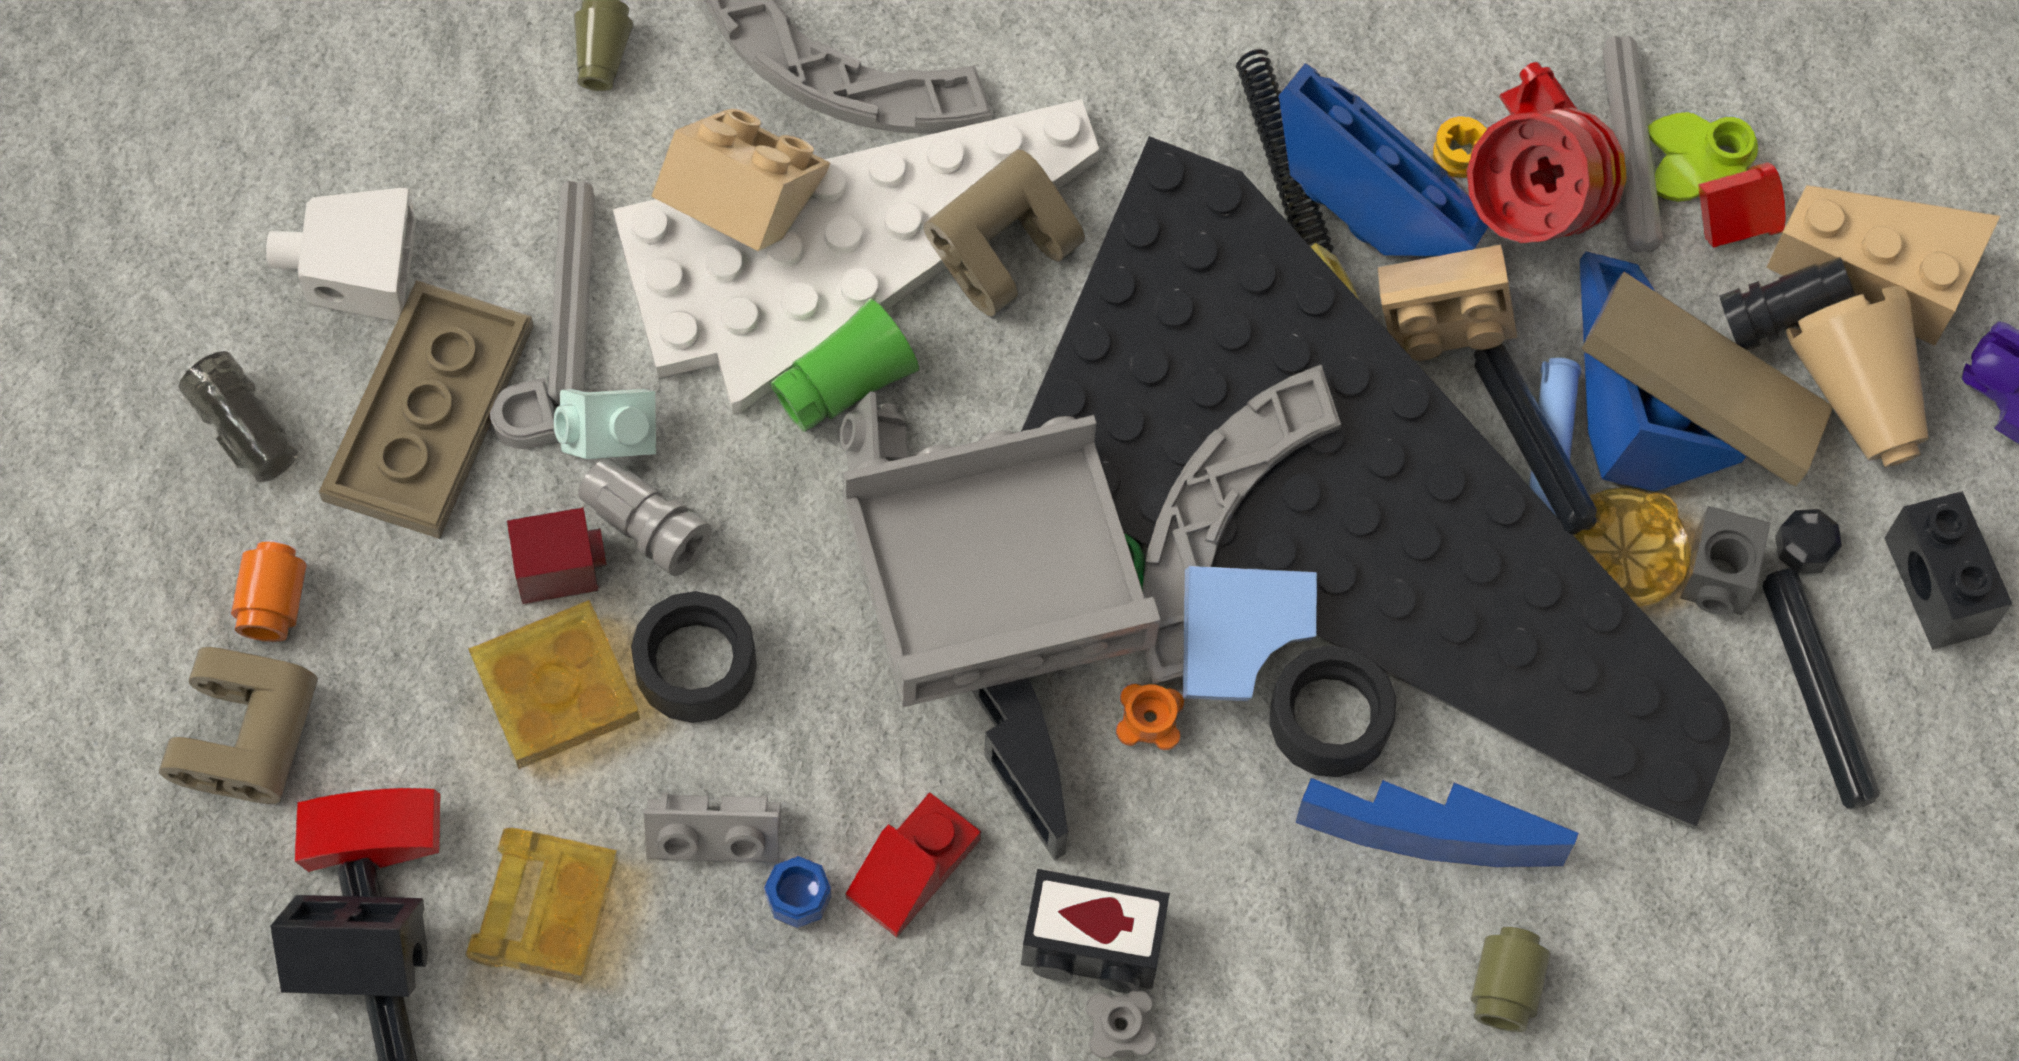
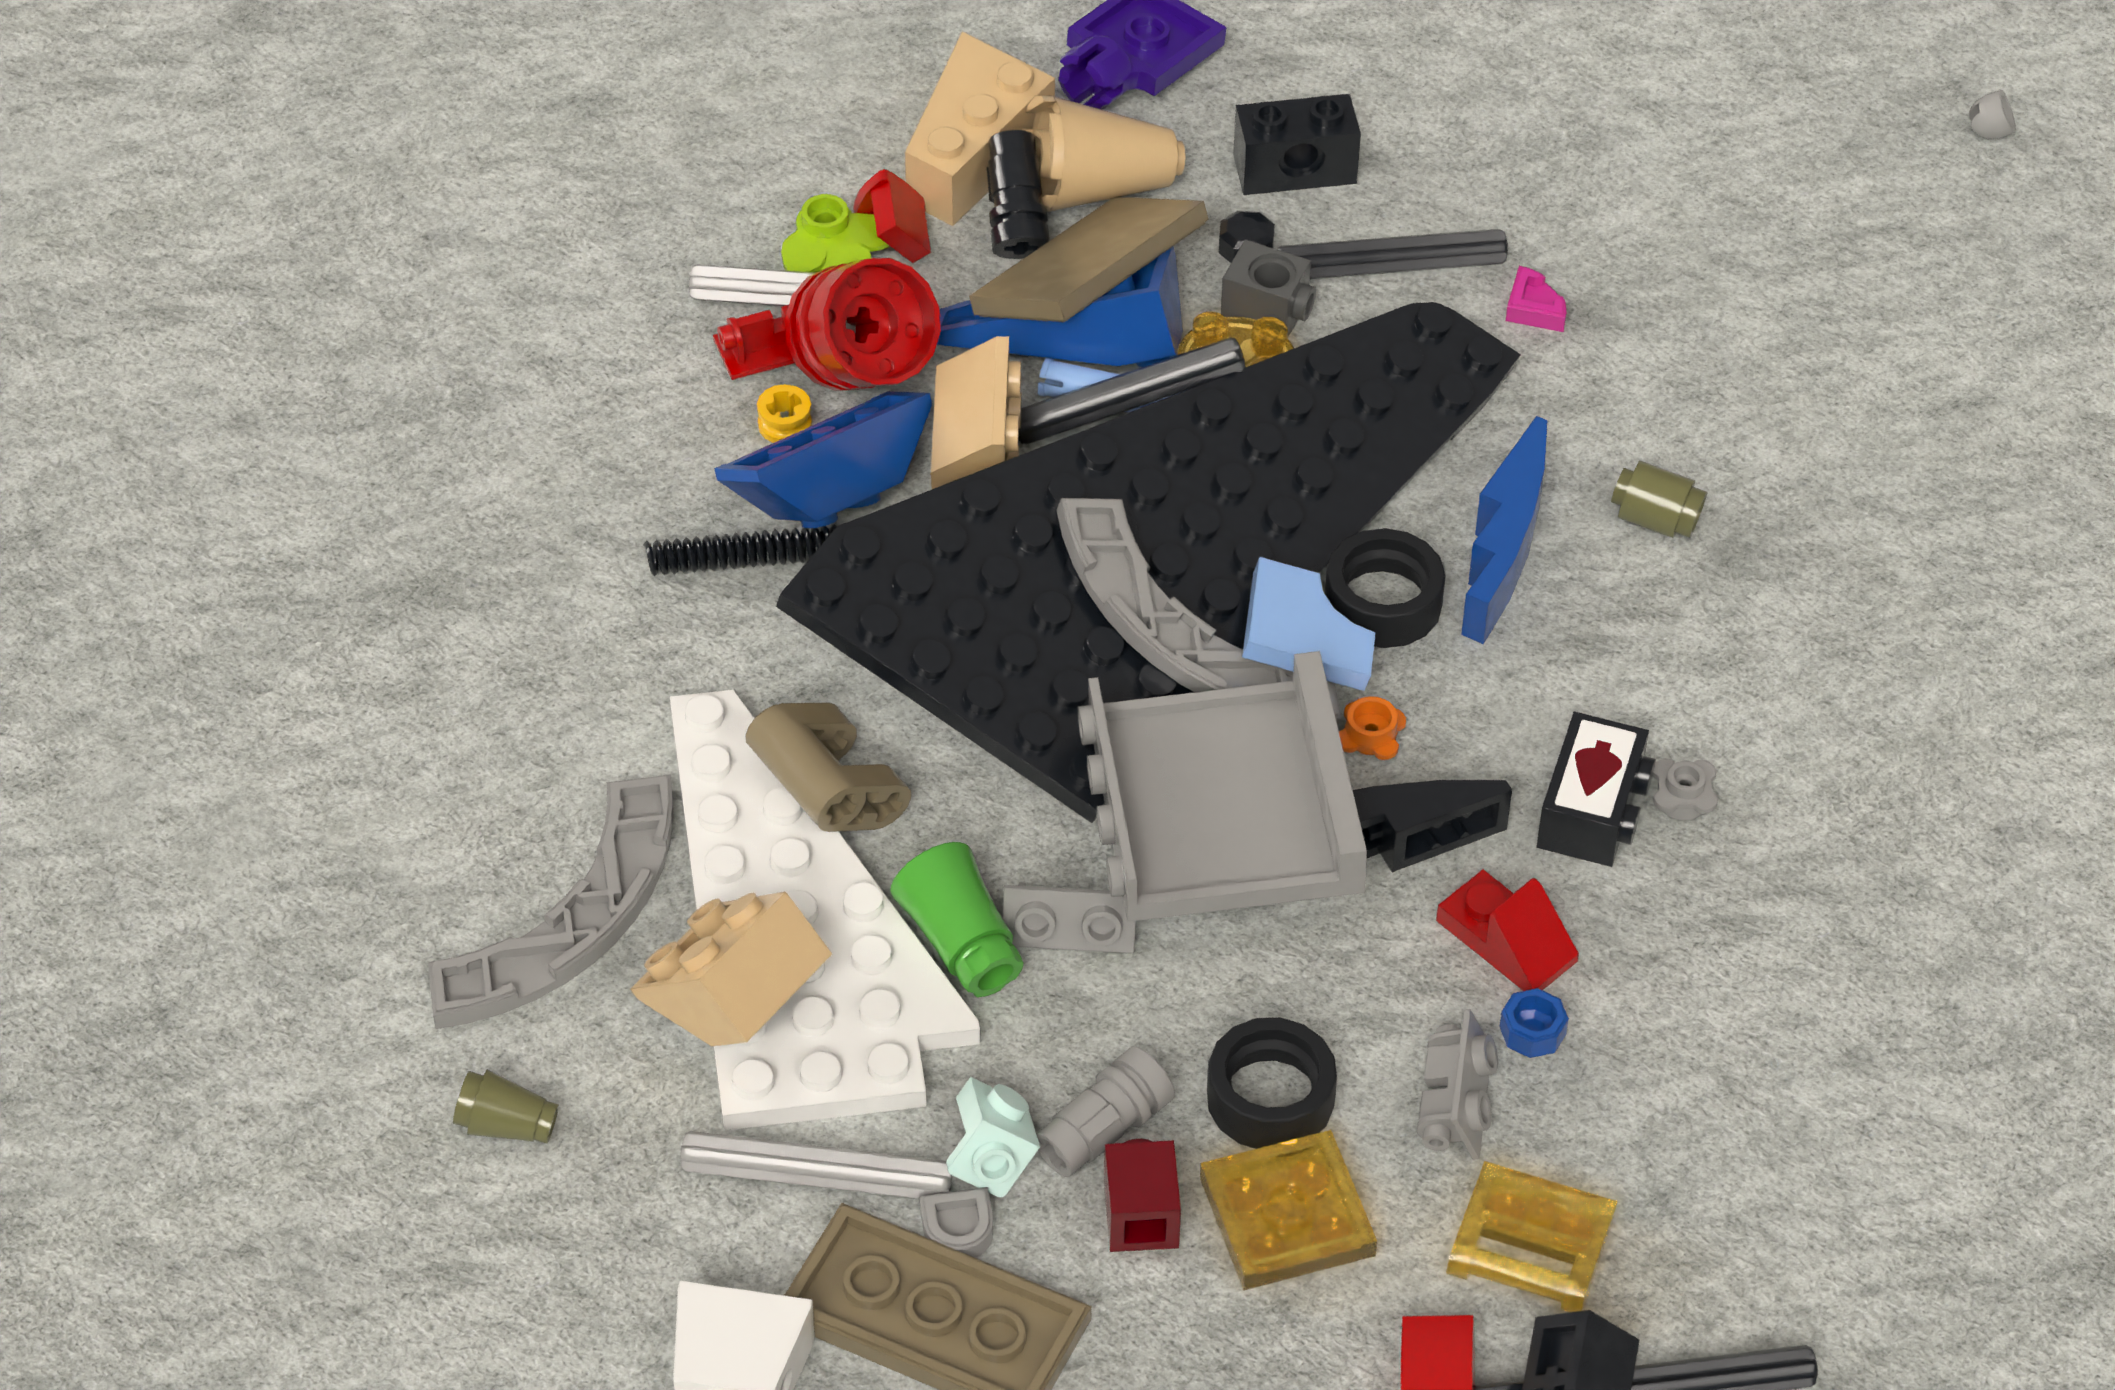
camera: 80 degrees left, 15 degrees down
(1790, 841) = (1535, 302): none -> dark pink tile

